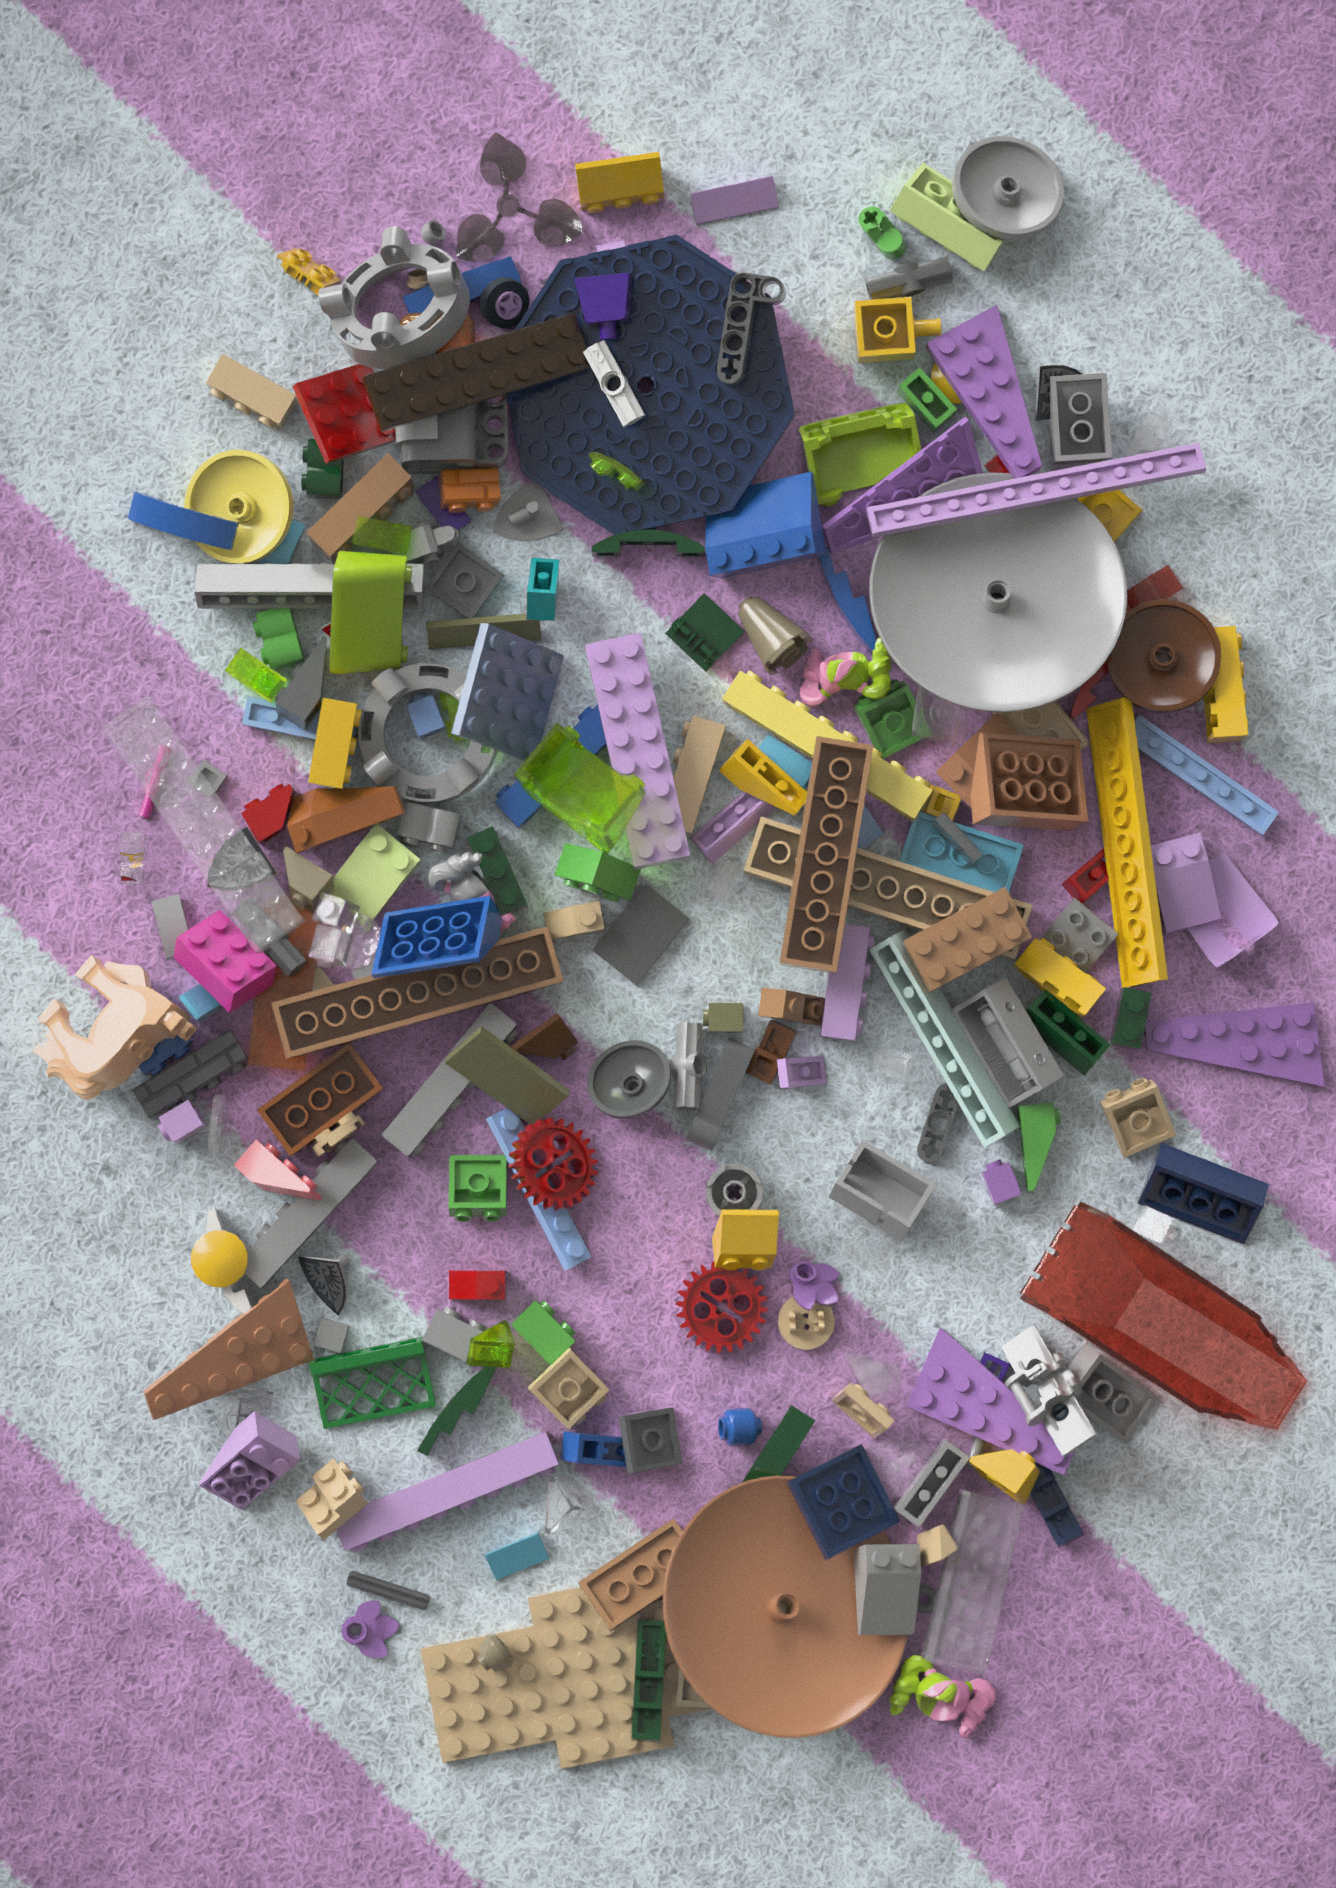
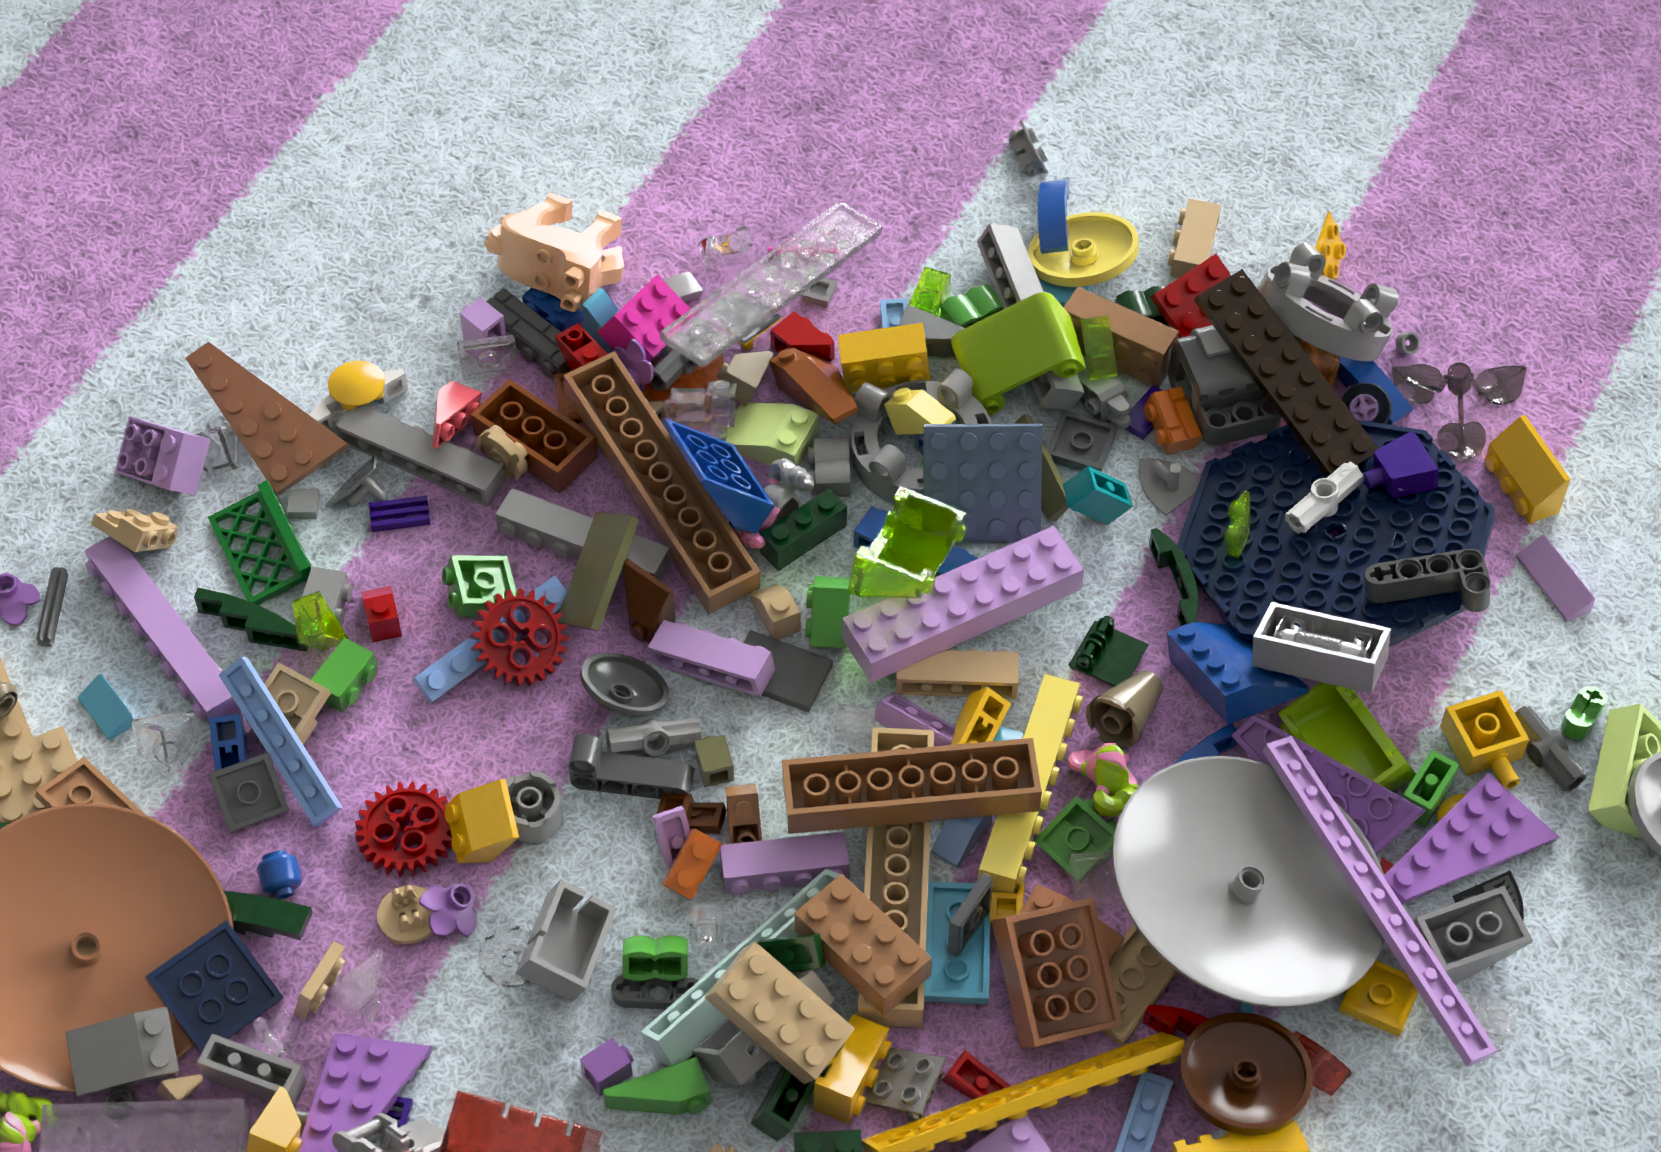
camera: 75 degrees right, 30 degrees down
(96, 516) = (1024, 141): none -> light grey hinge
(246, 1031) = (578, 347): none -> red slope
(276, 986) = (635, 363): none -> medium lavender plate
(356, 1249) = (399, 510): none -> dark purple tile
(409, 729) = (914, 408): none -> light yellow slope
(610, 1402) = (280, 741): none -> light blue plate
(620, 994) = (712, 658): none -> lavender brick
(789, 450) = (1321, 648): none -> light grey piece
(833, 1064) = (691, 864): none -> orange brick
(912, 1117) = (650, 958): none -> bright green brick
(960, 1002) = (796, 952): none -> dark green plate
(1024, 1029) = (779, 1013): none -> tan brick

